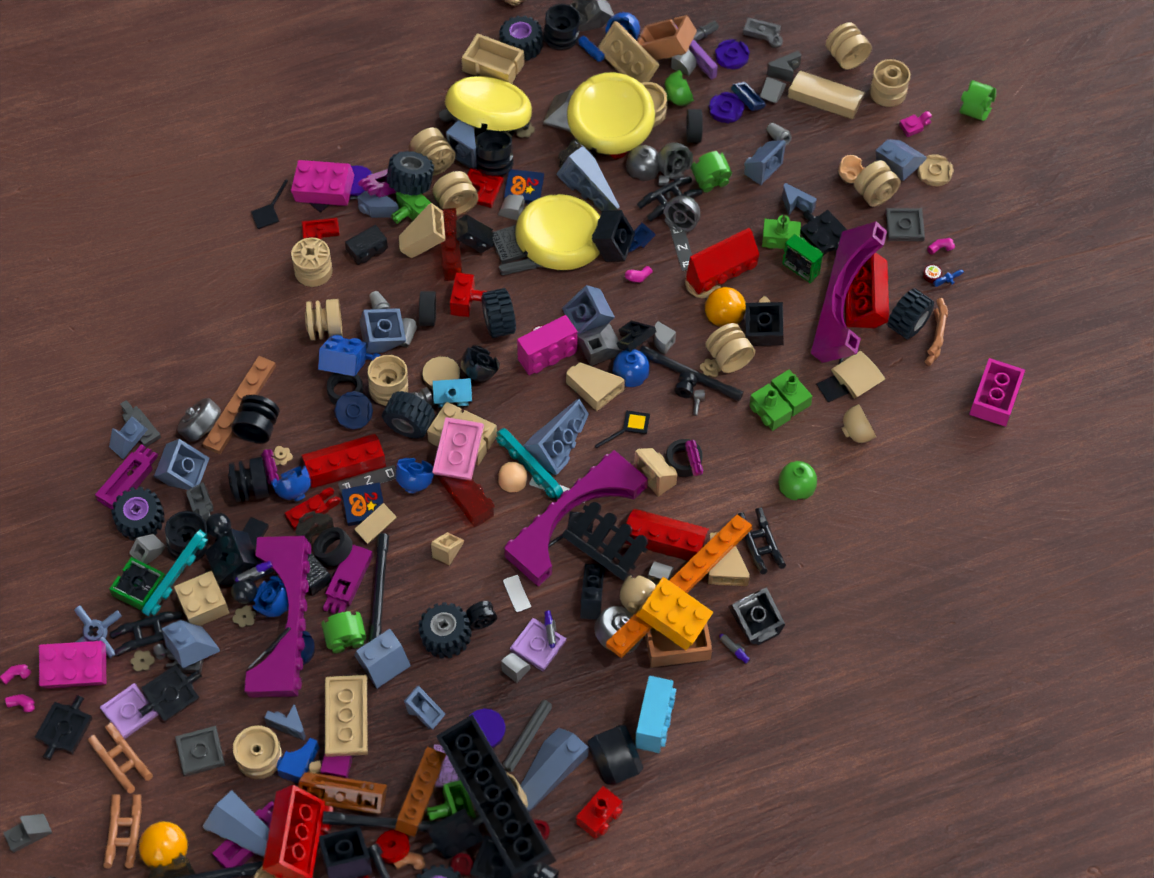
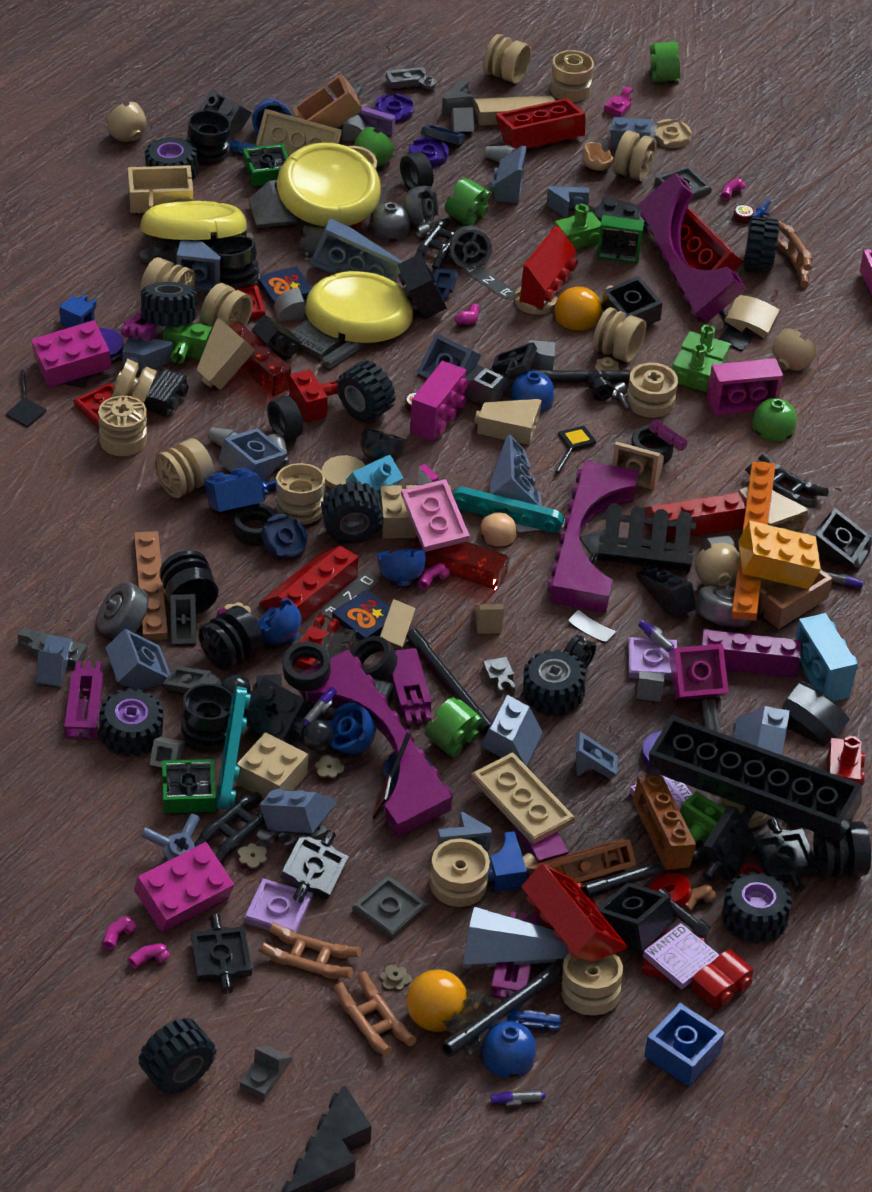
camera: 35 degrees left, 15 degrees down
(167, 811) = (395, 978): none -> dark tan plant
(234, 446) = (183, 619): none -> dark grey slope
(259, 522) = (303, 650): none -> black tyre
(337, 231) = (129, 385): none -> tan wheel
(357, 147) = (77, 311): none -> blue brick
(418, 599) = (499, 672): none -> flat silver plate
(435, 490) = (430, 573): none -> dark pink arm
(492, 409) = (426, 475): none -> tile
(549, 678) = (698, 672): none -> dark pink brick
(588, 65) = (264, 162): none -> piece
(607, 679) = (757, 653): none -> magenta brick
(720, 408) = (652, 390): none -> tan wheel
(790, 440) = (743, 385): none -> dark pink brick
(828, 120) = (541, 124): none -> red slope

